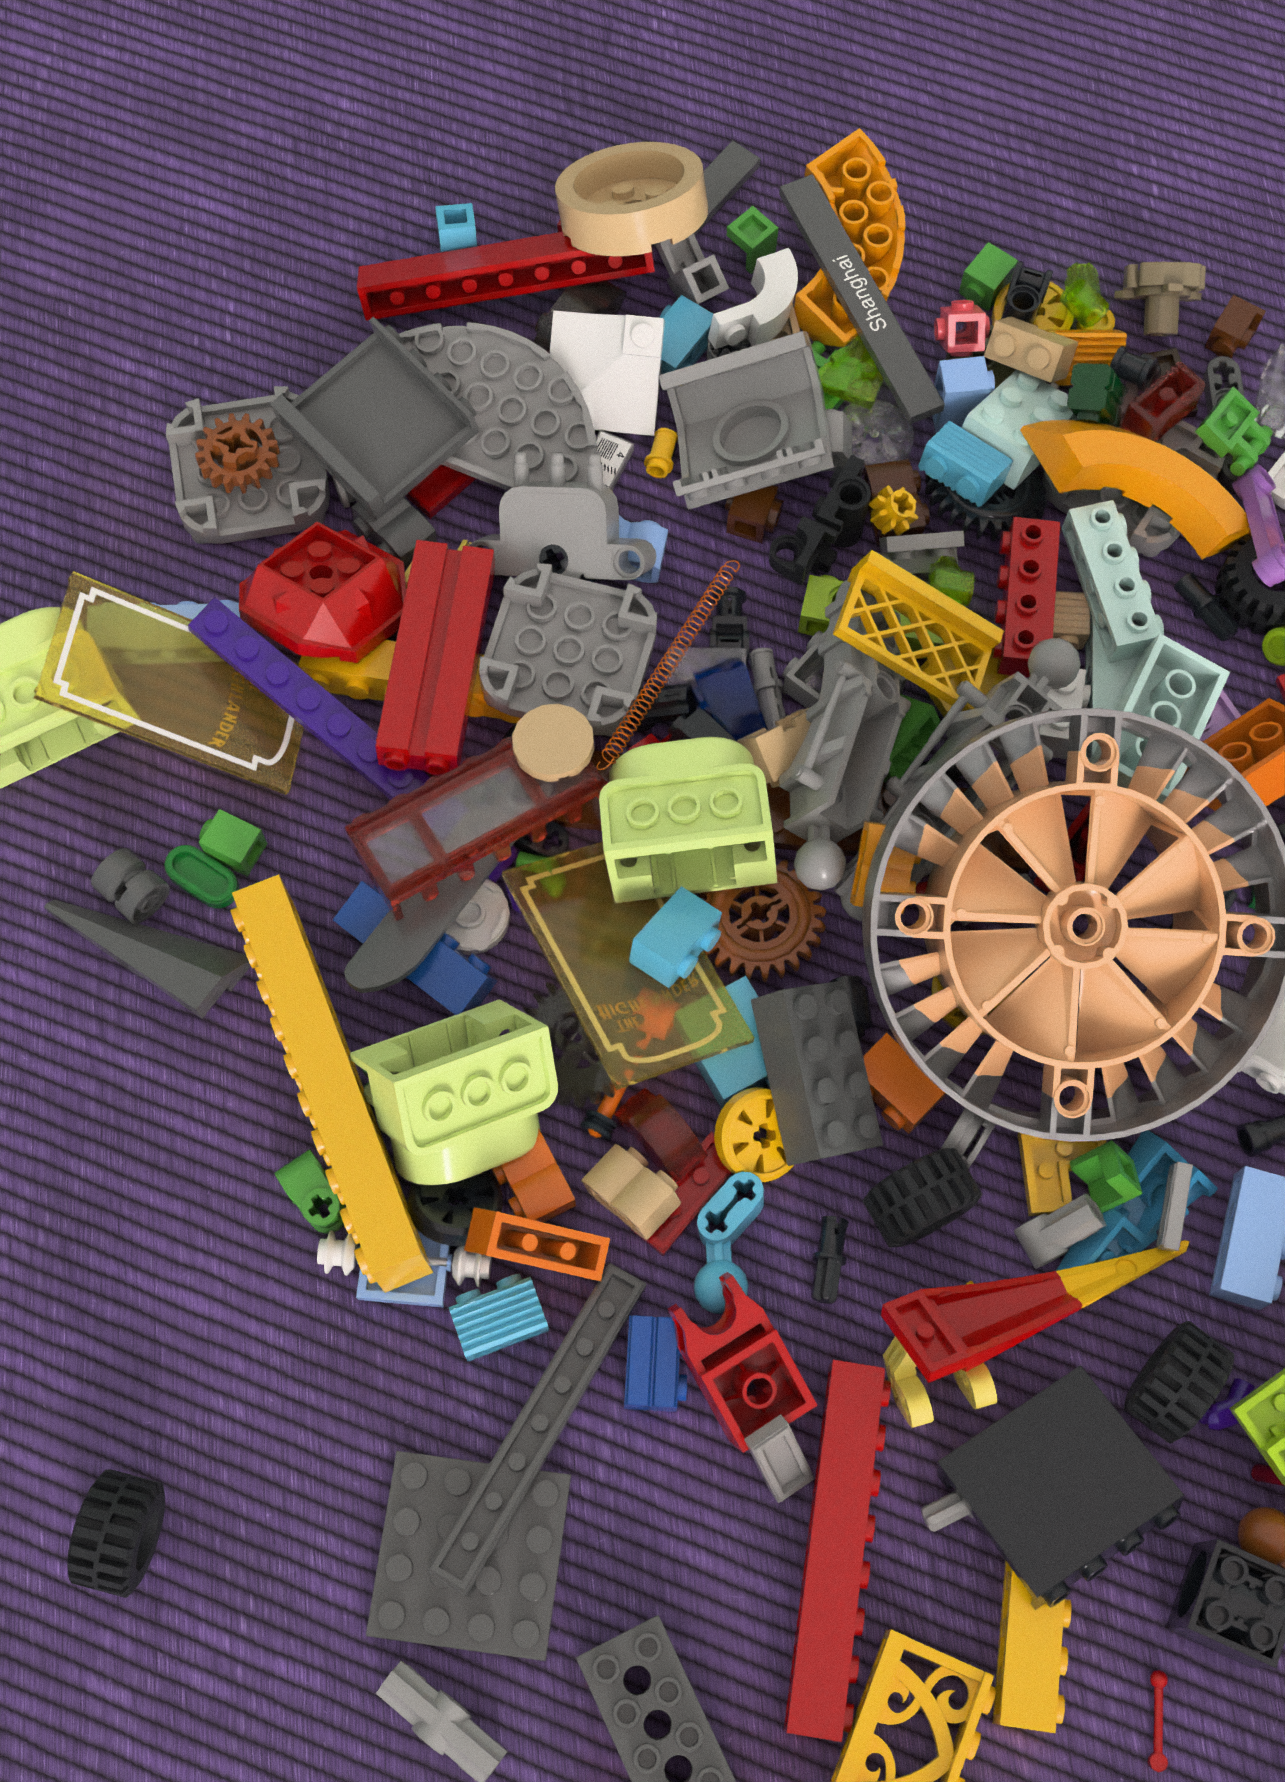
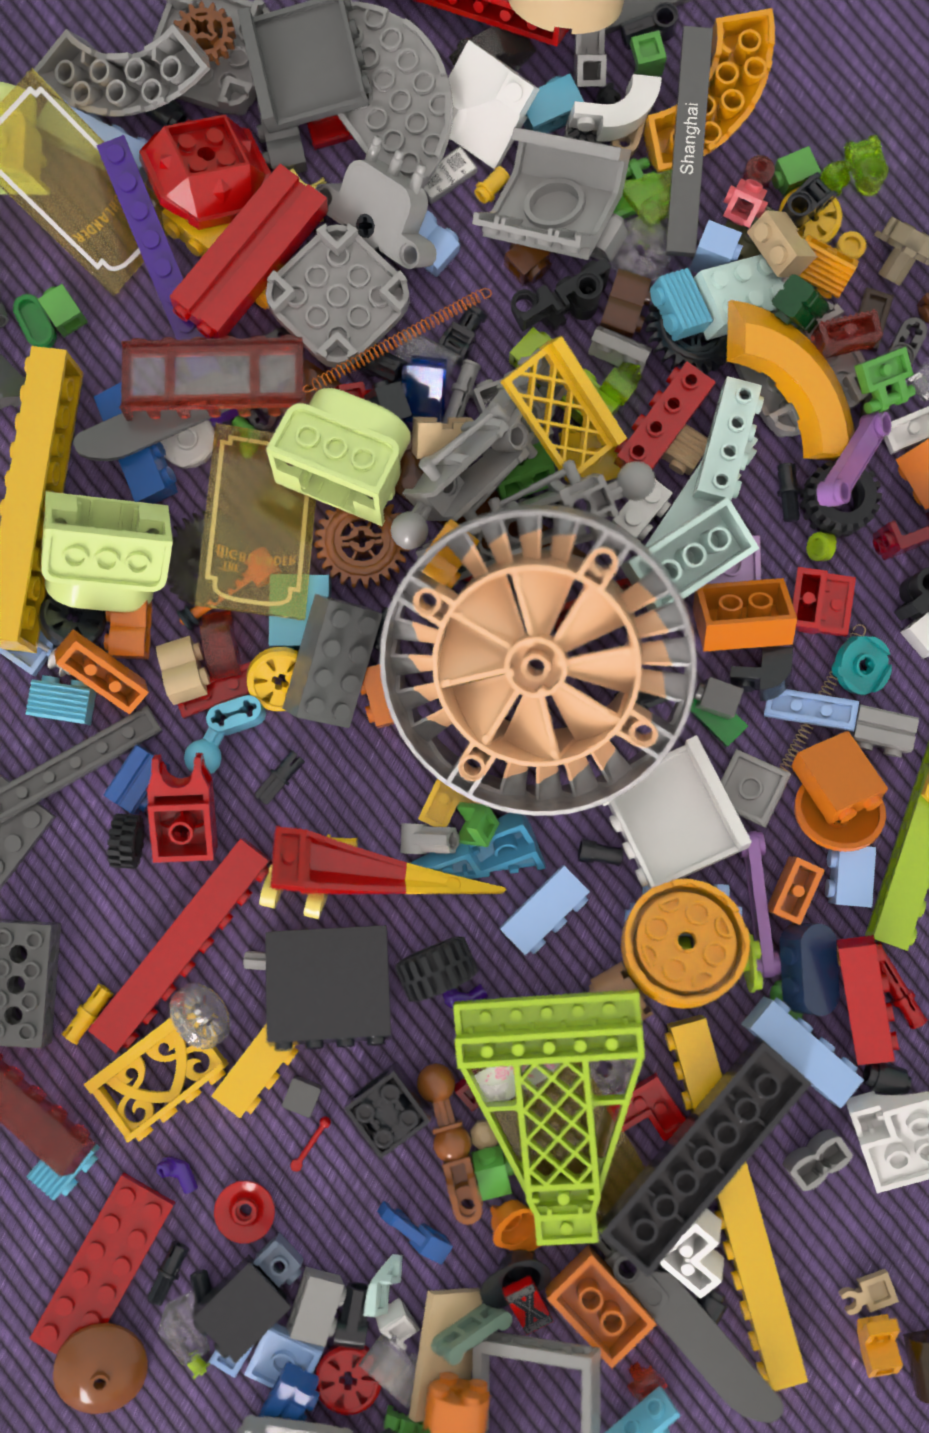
camera: 30 degrees right, 15 degrees up
(177, 542) = (123, 81): none -> light grey brick
(230, 559) = (168, 114): none -> black brick
(553, 742) = (283, 355): tan tile -> none
(676, 937) = (294, 527): medium azure brick -> none
(689, 1448) = (126, 841): none -> black tyre
(732, 207) = (650, 23): none -> black piece
(733, 298) = (608, 95): none -> black piece
(767, 1716) = (87, 1014): none -> yellow pin
(779, 1458) = (175, 877): light grey tile -> none
(893, 510) = (605, 310): yellow gear -> none
(920, 1624) = (185, 1013): none -> clear wheel
(922, 1197) = (351, 773): black tyre -> none
(950, 288) = (759, 169): none -> clear red brick
(964, 1134) = (398, 752): light grey wheel -> none
(1034, 255) = (836, 175): none -> clear neon green plate
(1060, 233) = (867, 159): none -> clear neon green piece
(1083, 294) = (849, 221): clear neon green piece -> none
(1109, 1660) = (302, 1096): none -> dark grey piece
(1136, 369) = (847, 297): black connector -> none
(1174, 1206) = (503, 865): light grey tile -> none

